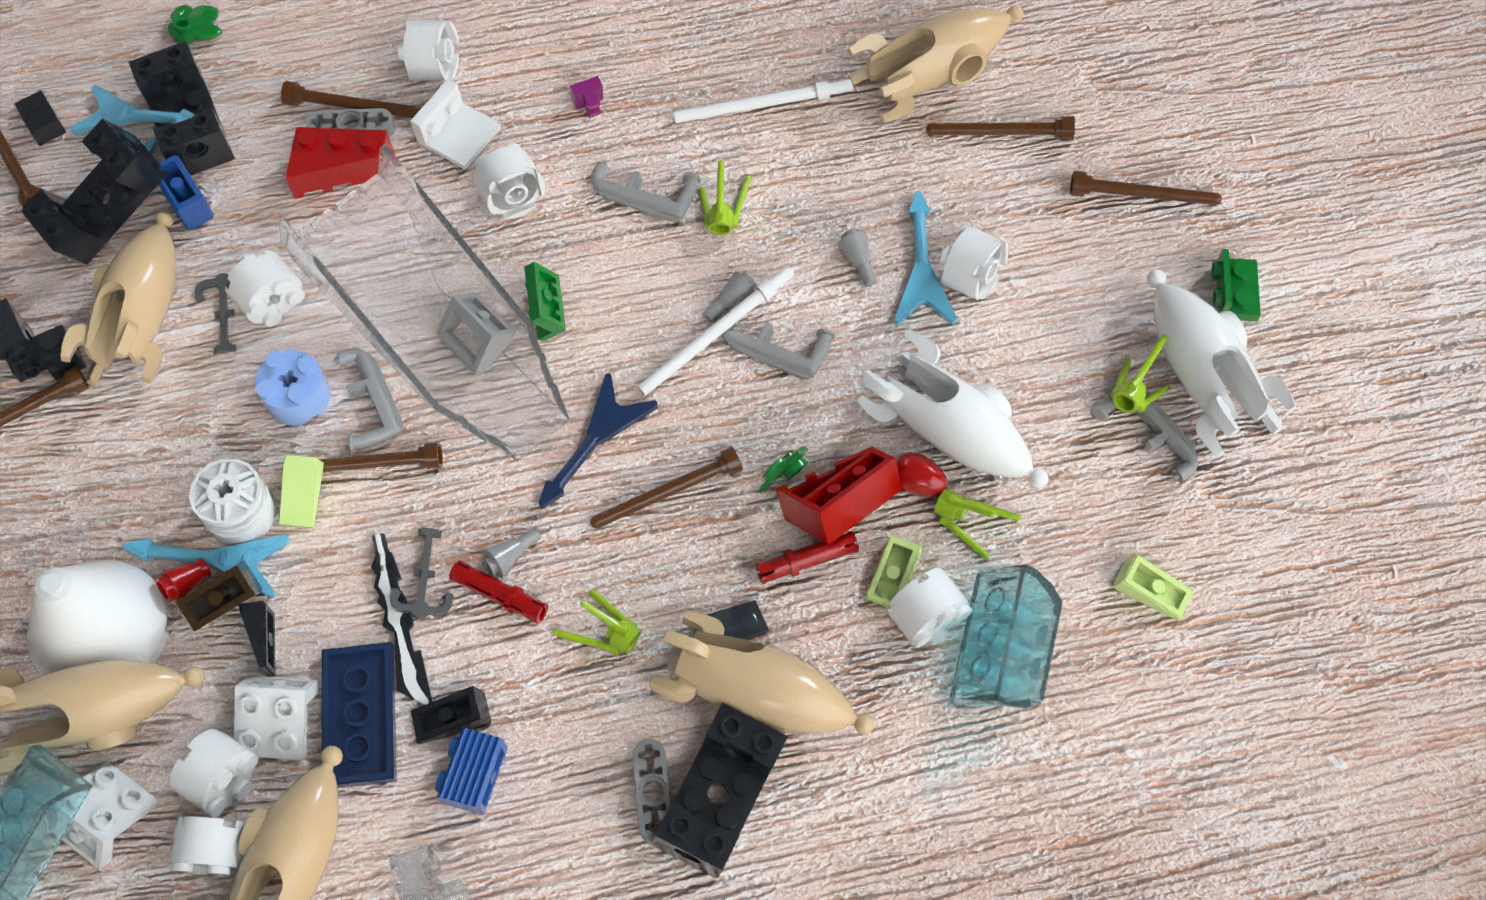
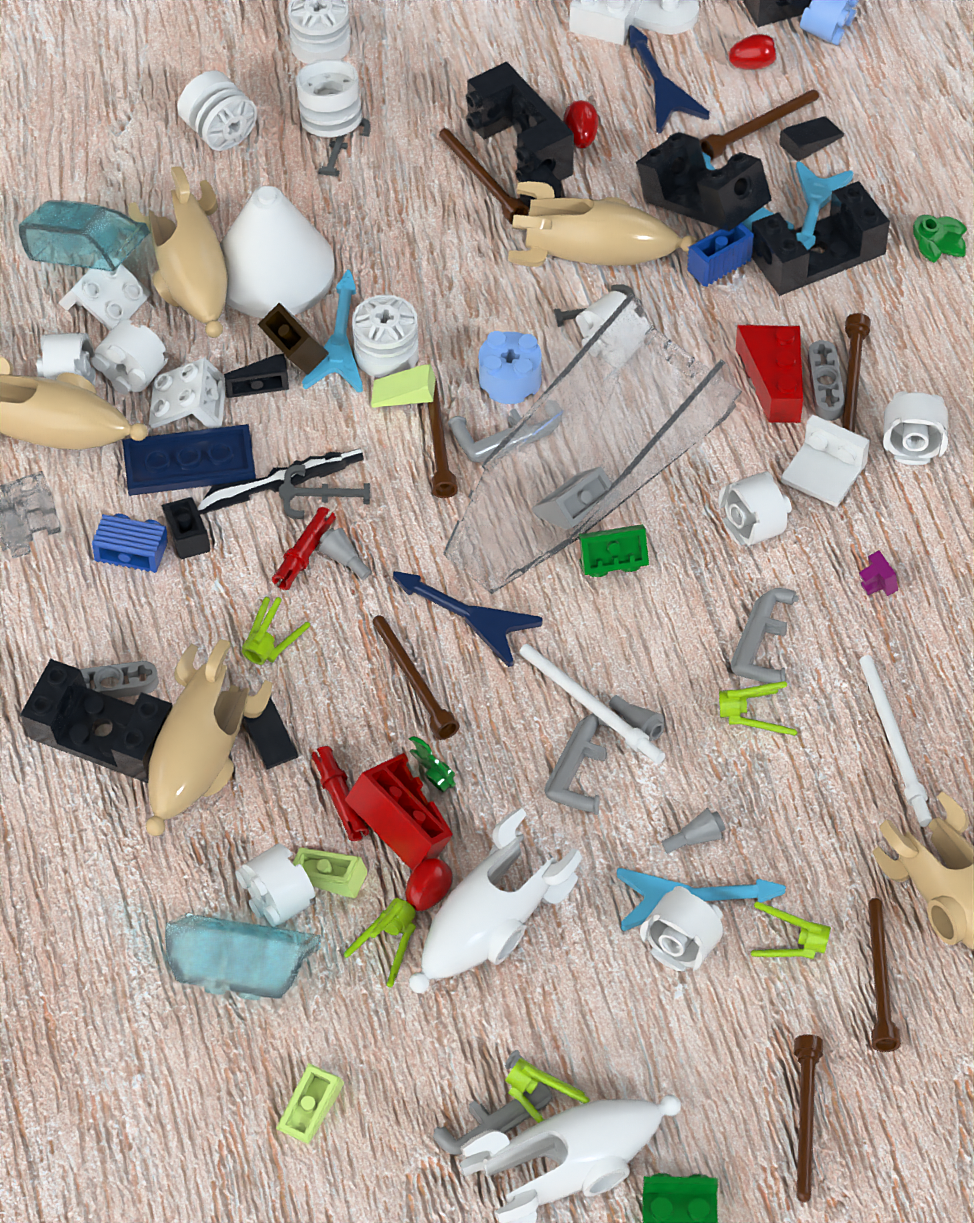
camera: 85 degrees right, 10 degrees down
(181, 580) = (312, 313): red cone -> none
(967, 174) = (812, 936): none -> lime plant

